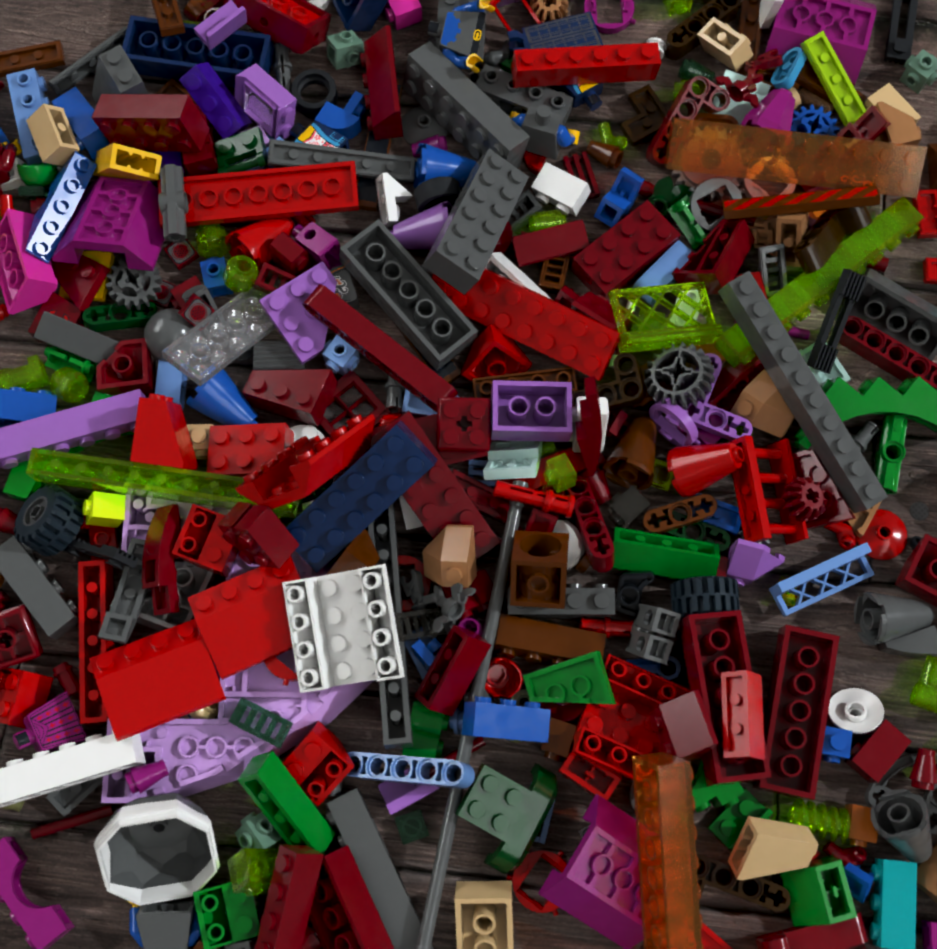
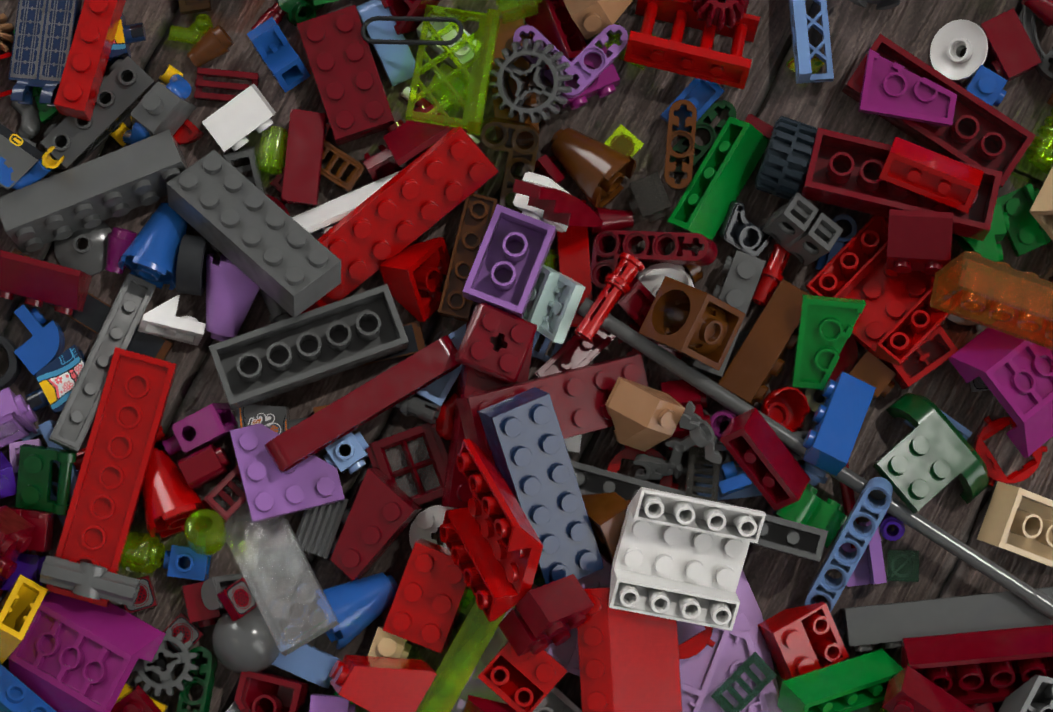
camera: 75 degrees left, 10 degrees up
(434, 801) = (886, 532): none -> dark purple pin
(560, 473) = (588, 258): clear neon green plate -> none
(671, 281) = (411, 18): none -> black piece
(674, 416) = (579, 108): medium lavender piece -> none
(702, 465) = (639, 98): red cone -> none
(750, 561) = (763, 92): medium lavender slope -> none
(798, 672) = (904, 95): none -> magenta wing

